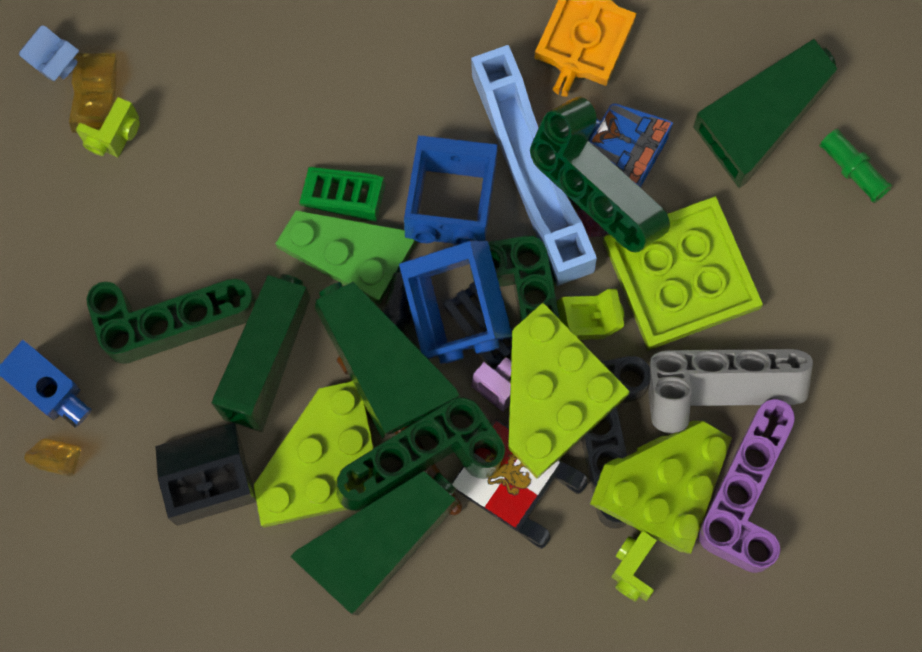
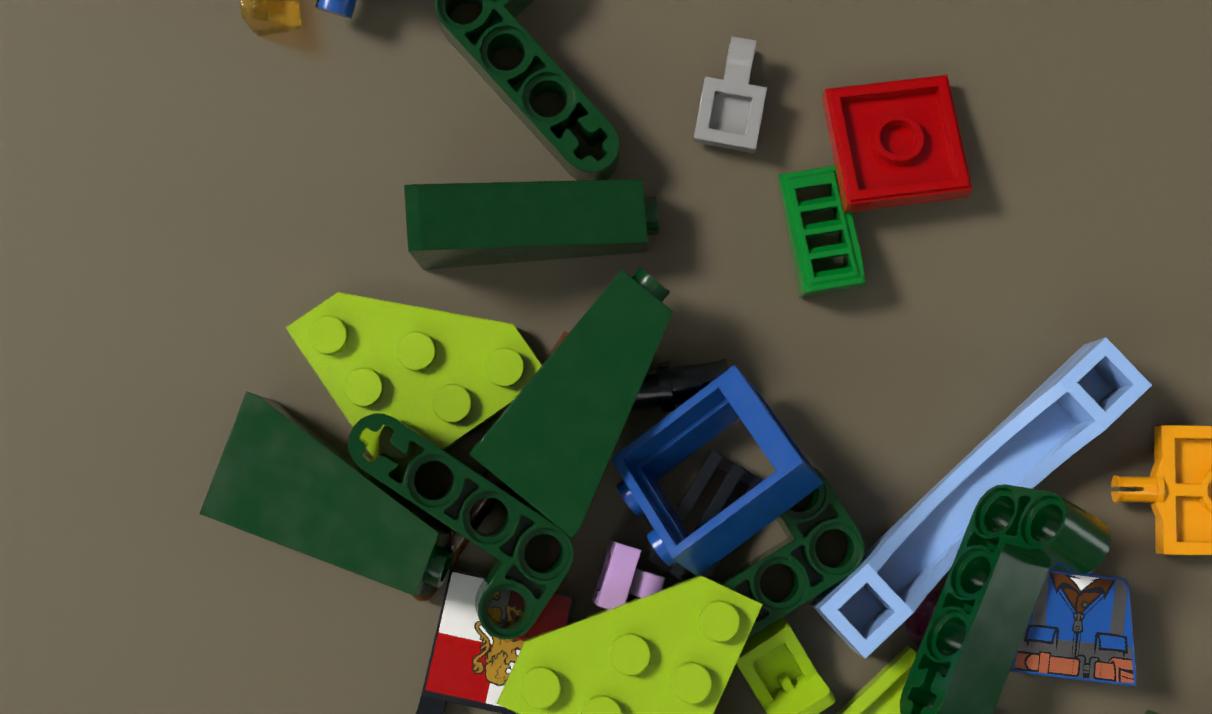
camera: 65 degrees right, 10 degrees up
(203, 475) = (320, 215): black slope -> none
(246, 213) = (730, 106): none -> light grey plate
(311, 130) = (896, 143): none -> red plate
(347, 250) = (736, 278): bright green wing -> none
(456, 158) = (941, 374): blue window -> none

